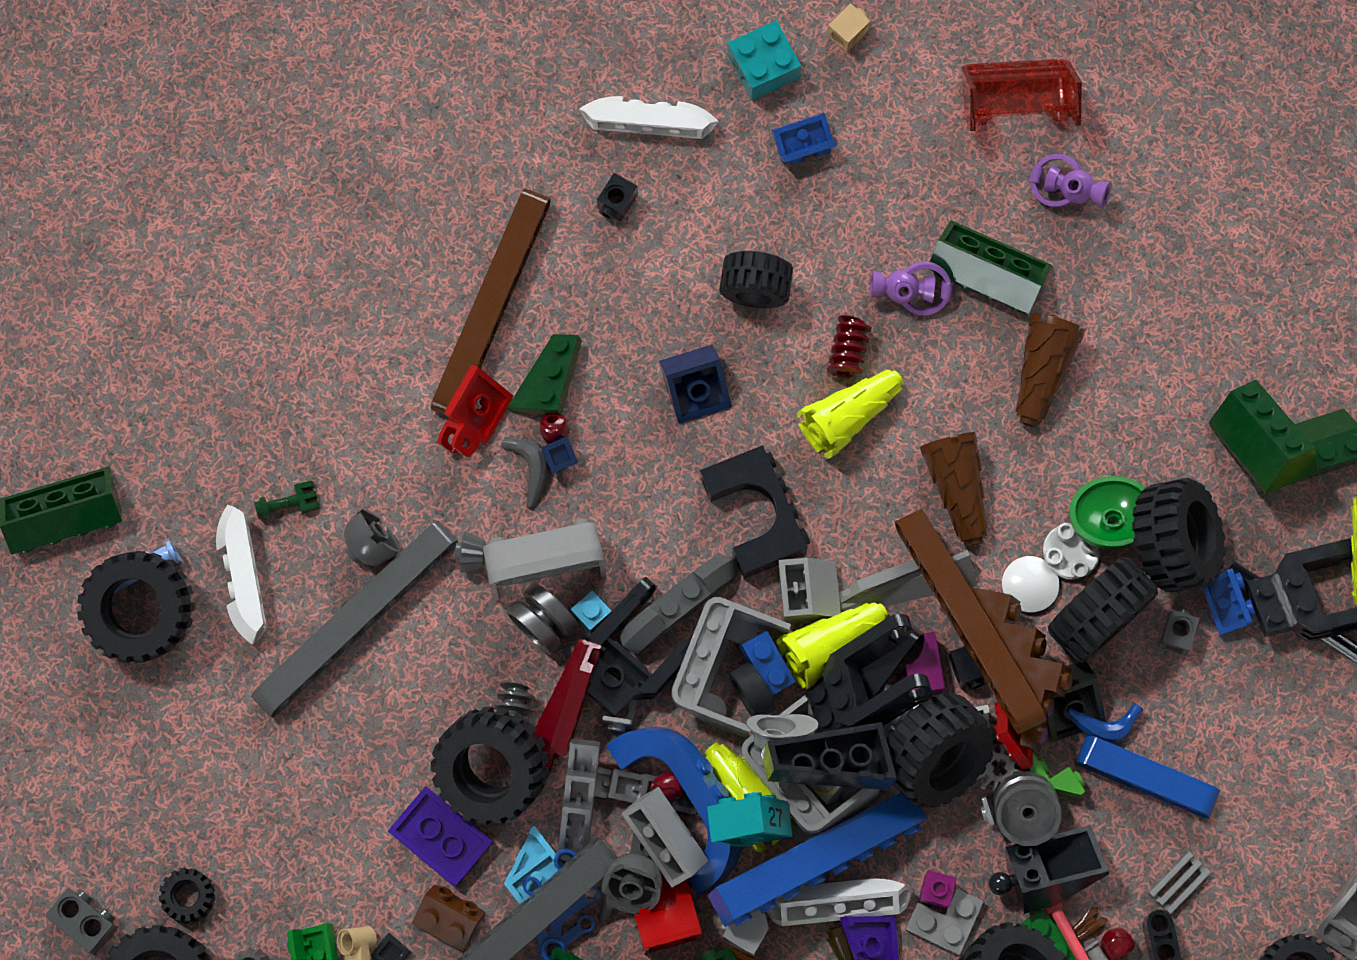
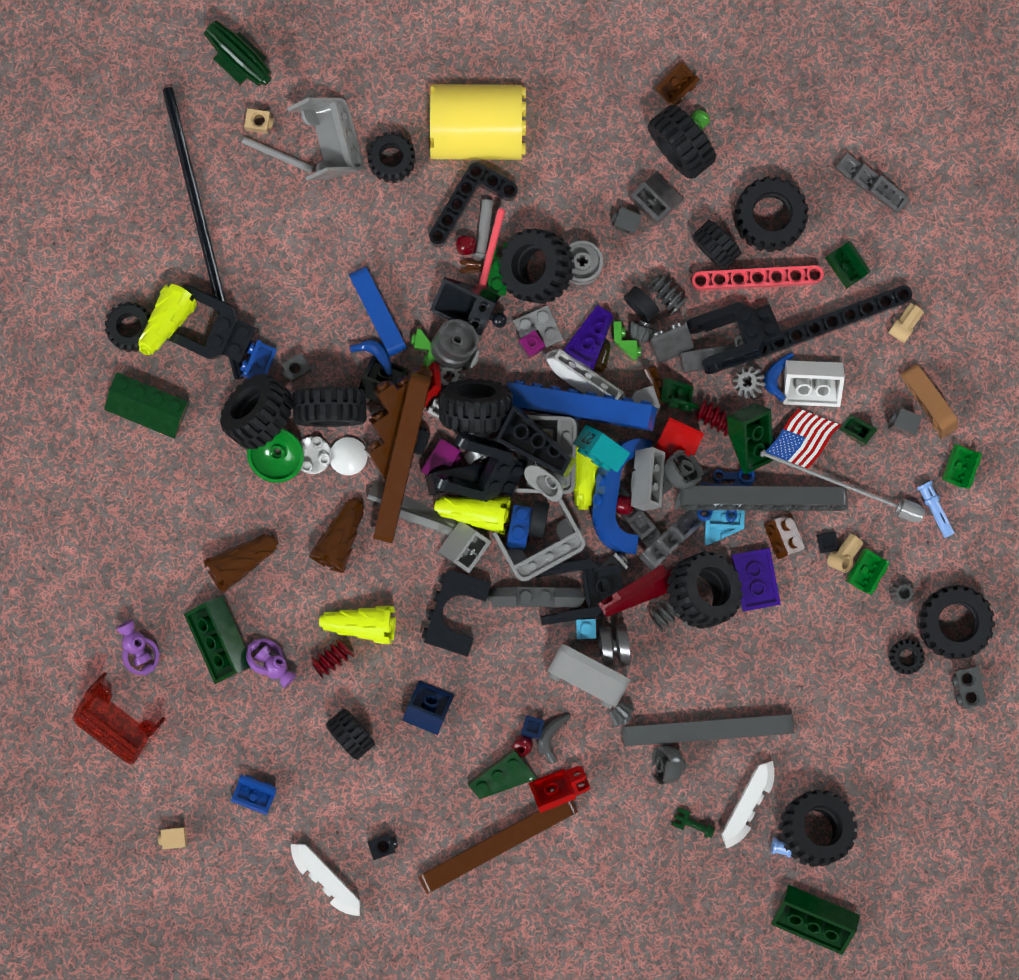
camera: 145 degrees left, 10 degrees up
(763, 60) = (236, 858): teal brick -> none
(1196, 865) = (408, 248): light grey tile -> none
(1263, 438) = (166, 425): dark green slope -> none

